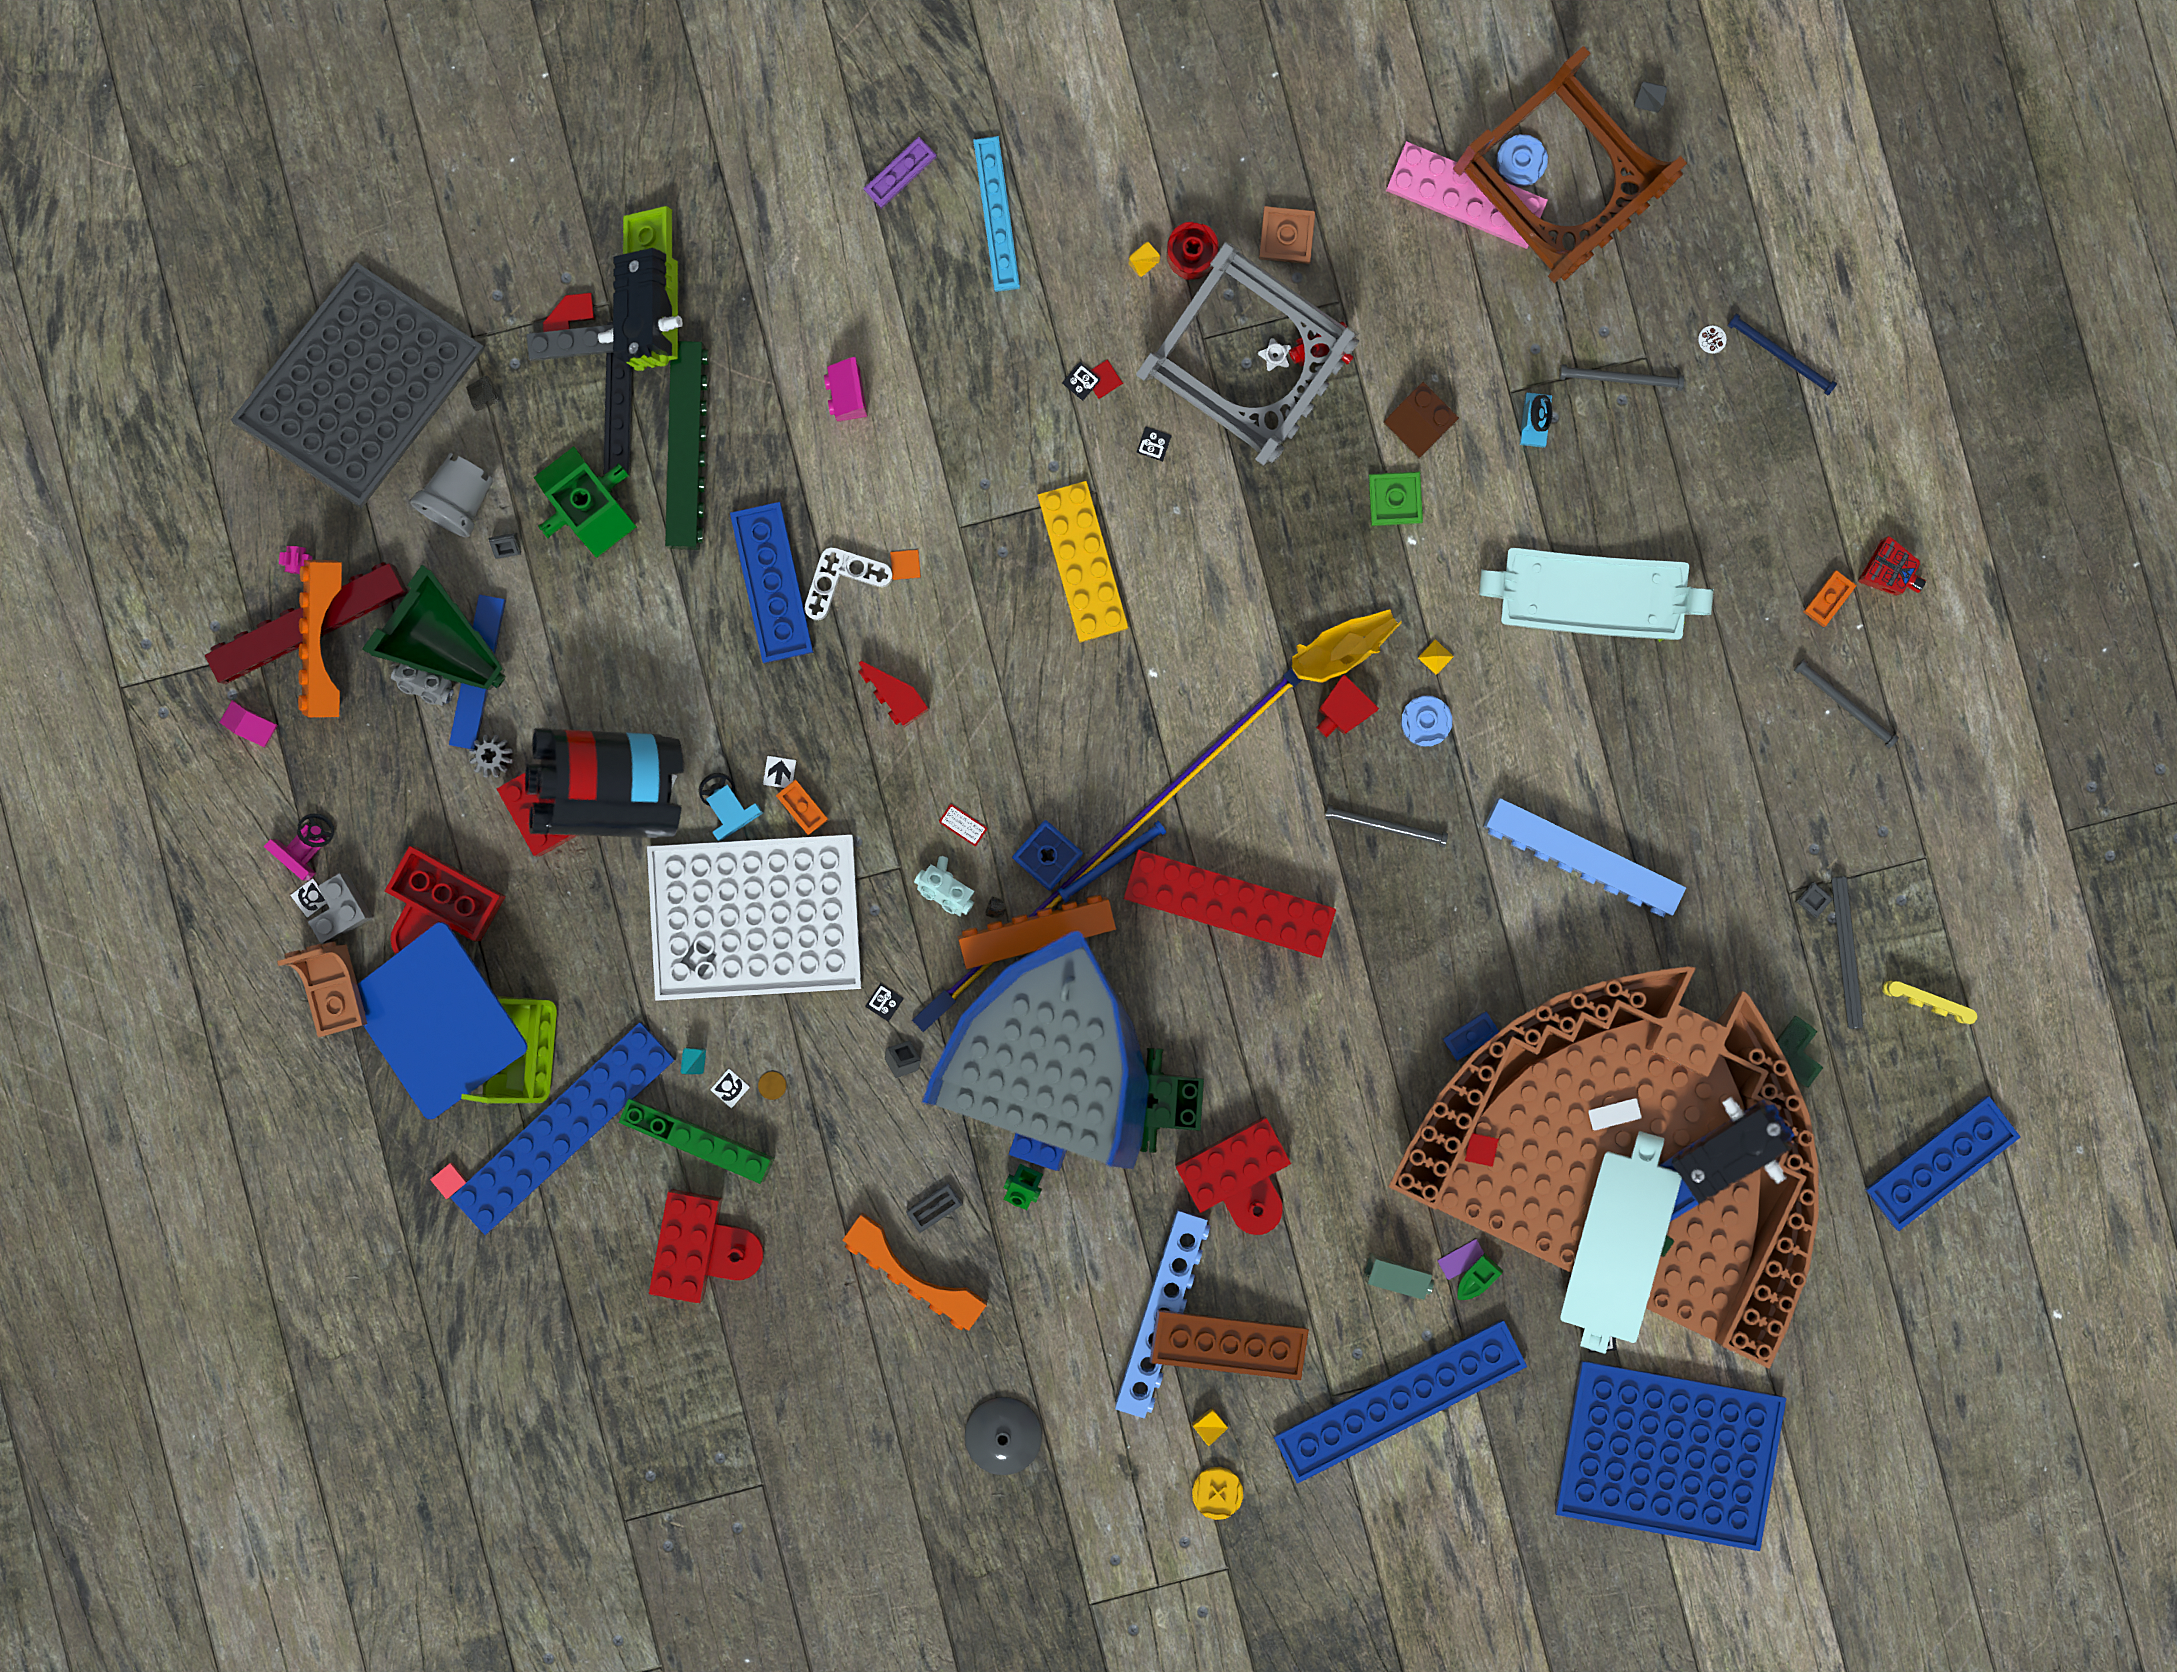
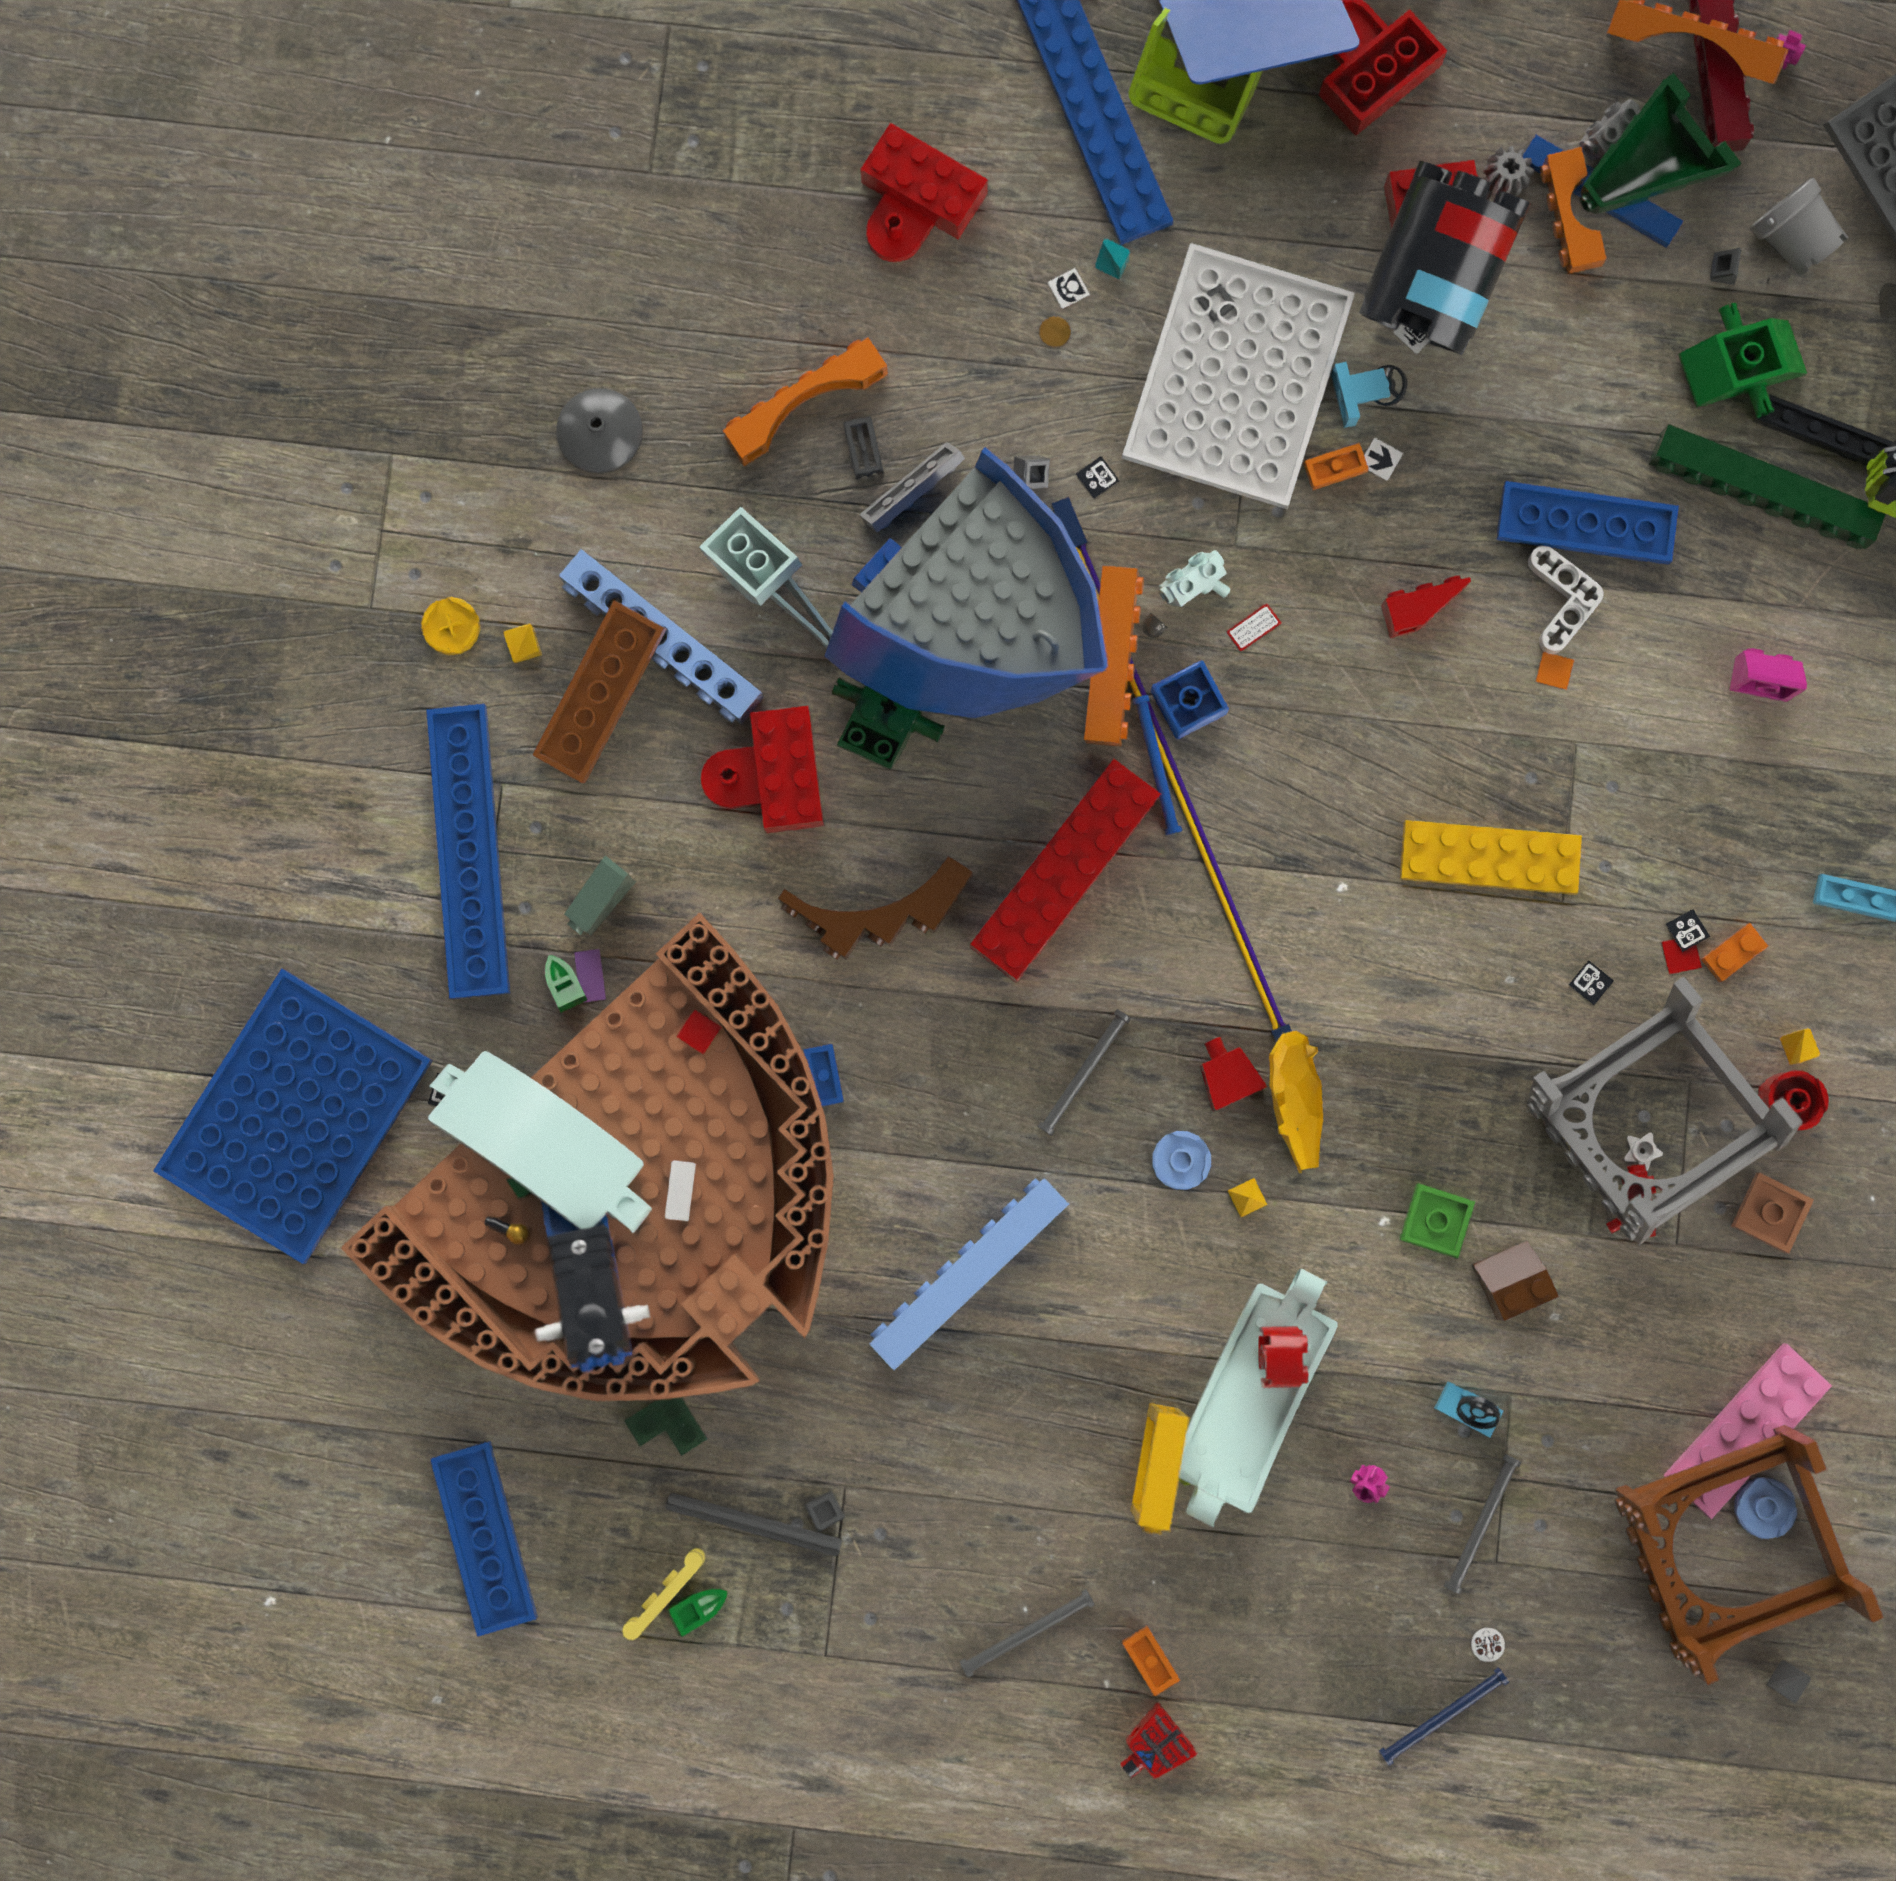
camera: 115 degrees right, 5 degrees down
(535, 672) = (1580, 246): none -> orange arch
(697, 1141) = (1026, 233): green slope -> none
(954, 1153) = (912, 486): none -> light grey plate
(1023, 1187) = (849, 542): green brick -> none
(1073, 1254) = (758, 566): none -> light aqua slope
(1085, 337) = (1734, 952): none -> orange plate
(1346, 1065) = (924, 906): none -> reddish brown arch
(1556, 583) = (1282, 1356): none -> red brick
(1626, 477) = (1369, 1484): none -> dark pink gear
(1683, 648) = (1159, 1468): none -> yellow window
(1700, 1233) = (515, 1232): none -> piece
(1931, 972) = (696, 1610): none -> green plate

